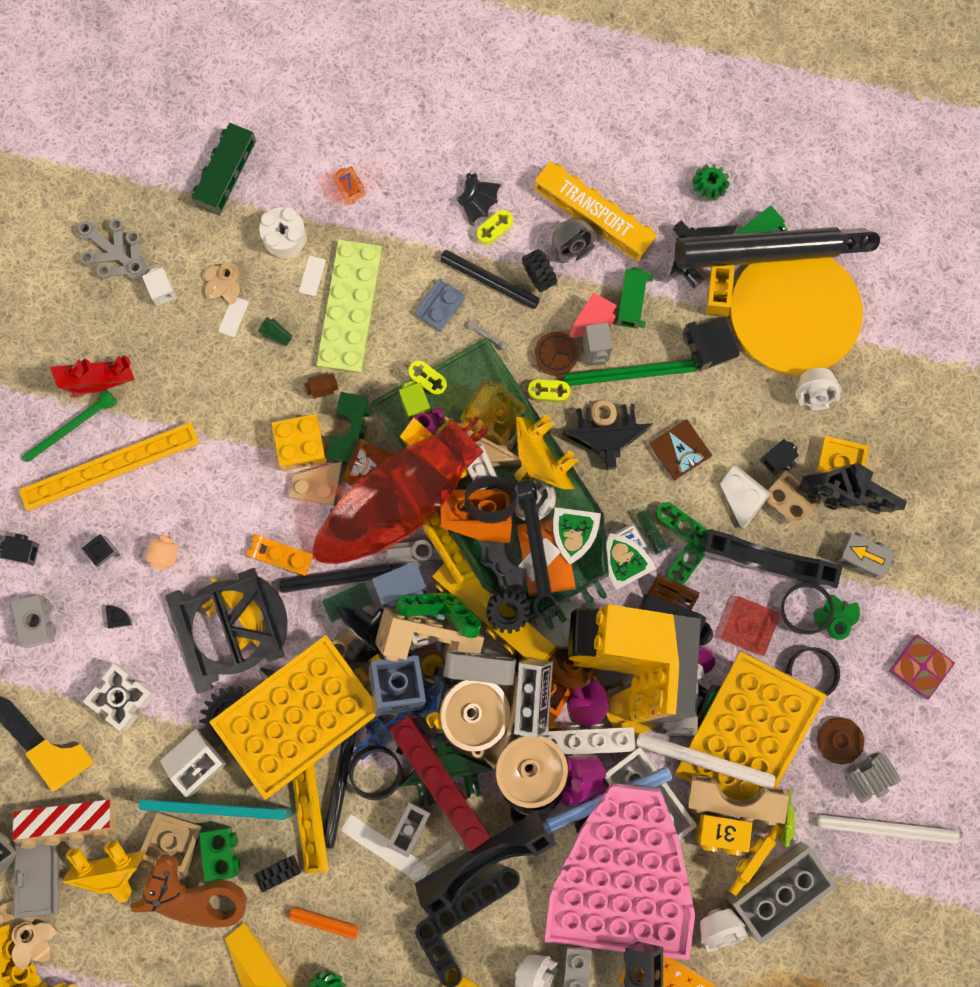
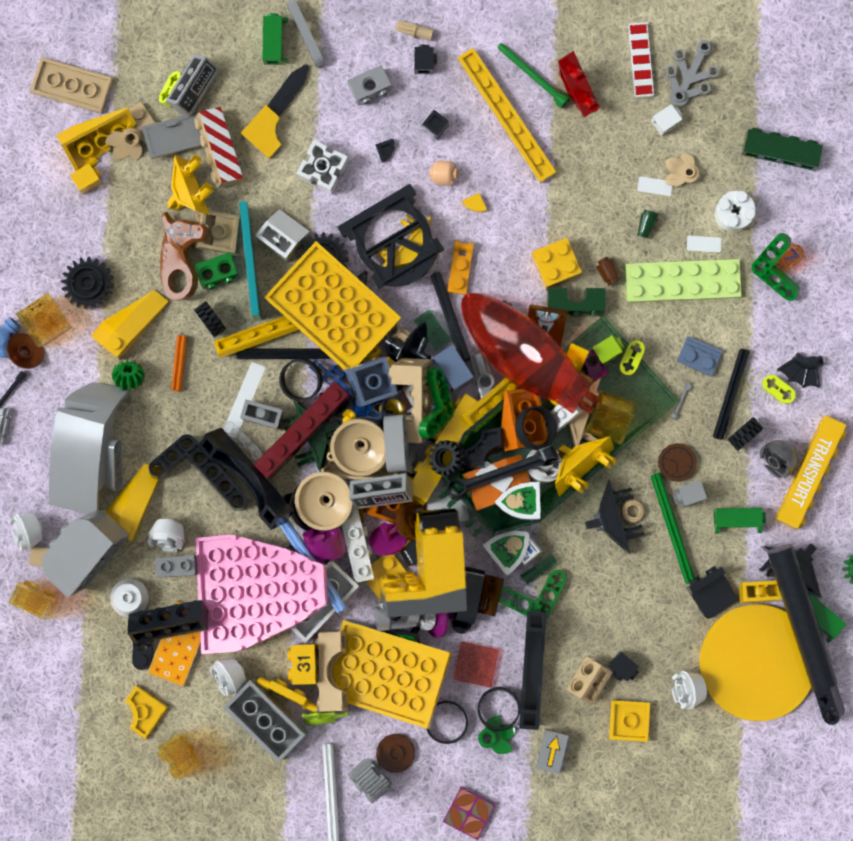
camera: 85 degrees right, 5 degrees up
(83, 302) = (640, 60): none -> tile
(207, 523) = (475, 203): none -> yellow tile
(317, 485) = (524, 286): tan wing -> none
(357, 207) = (770, 269): none -> green beam
(549, 396) = (638, 463): neon yellow beam -> none
(595, 312) = (716, 488): coral slope -> none
(680, 449) = (614, 582): reddish brown tile -> none
(705, 760) = (358, 641): white axle -> none
(743, 495) = (584, 640): white wing -> none
(850, 487) = (605, 722): black piece -> none

